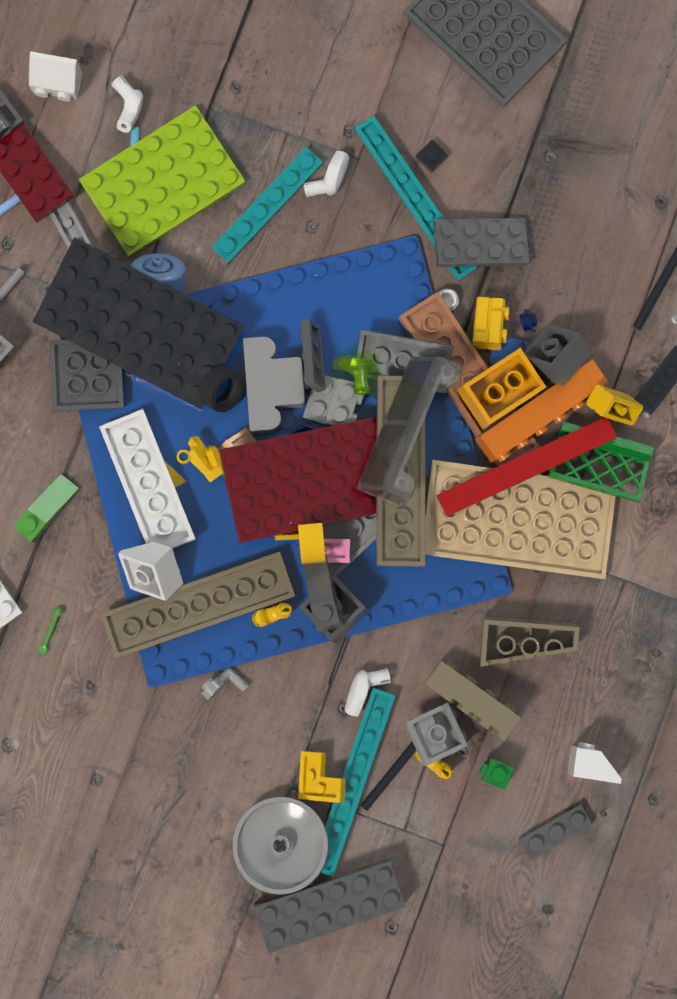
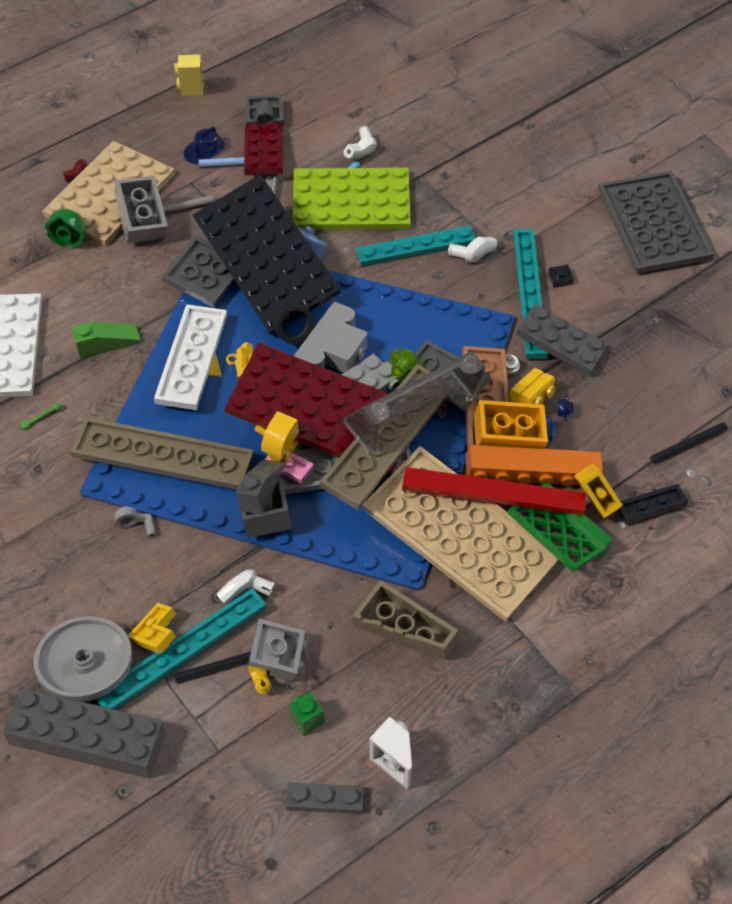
camera: 35 degrees right, 30 degrees down
(54, 76) = (324, 104): white slope -> none
(151, 570) = (147, 404): white slope -> none
(269, 615) = (205, 490): yellow piece -> none
(312, 355) = (378, 338): dark grey plate -> none
(472, 700) = (328, 645): dark tan wedge -> none
(557, 354) = (574, 431): dark grey brick -> none

